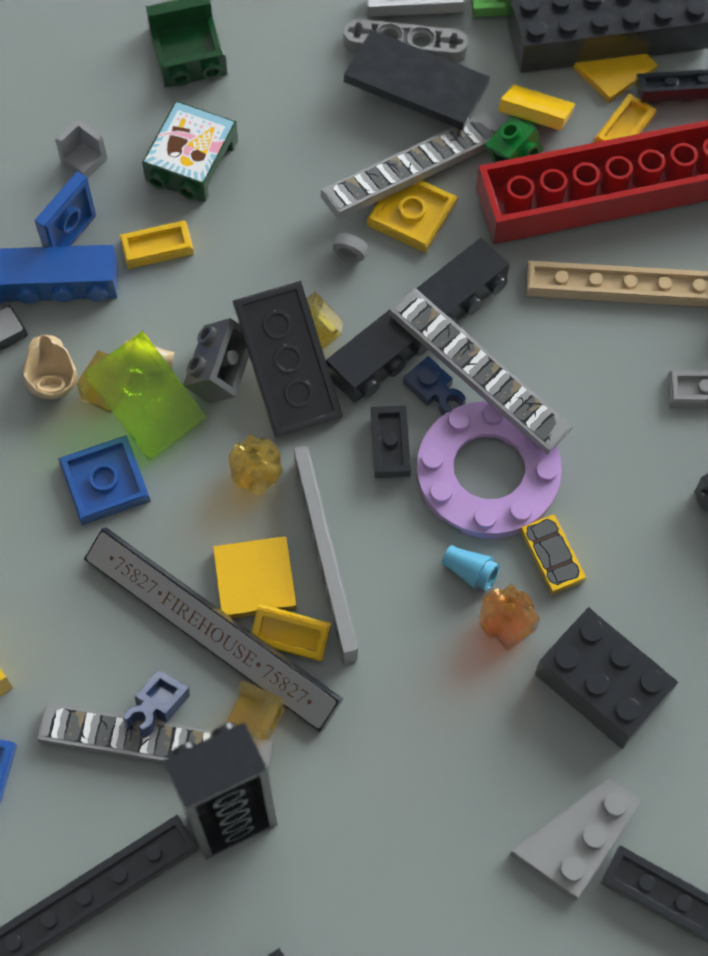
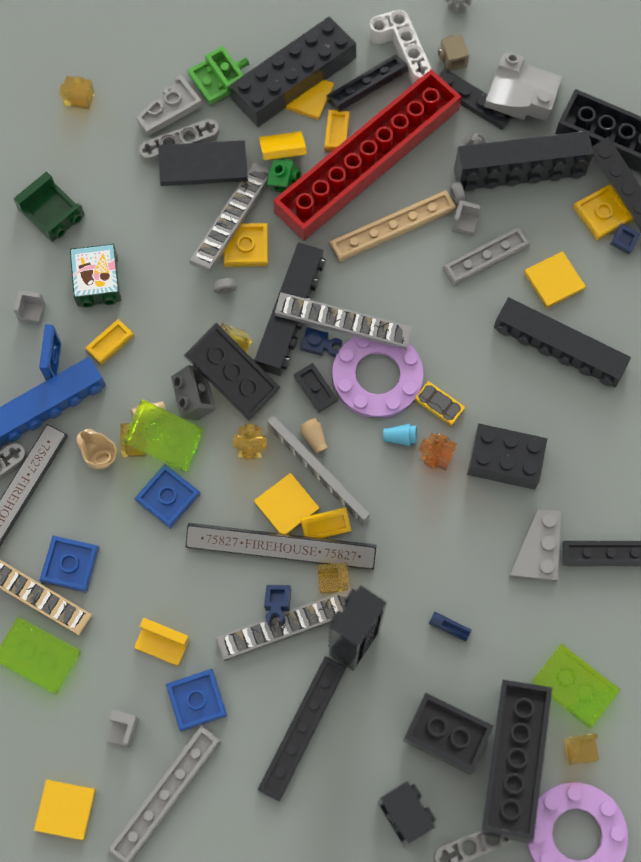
camera: 30 degrees left, 5 degrees up
(349, 503) = (314, 435): none -> tan cone
(379, 874) = (441, 622): none -> dark blue piece

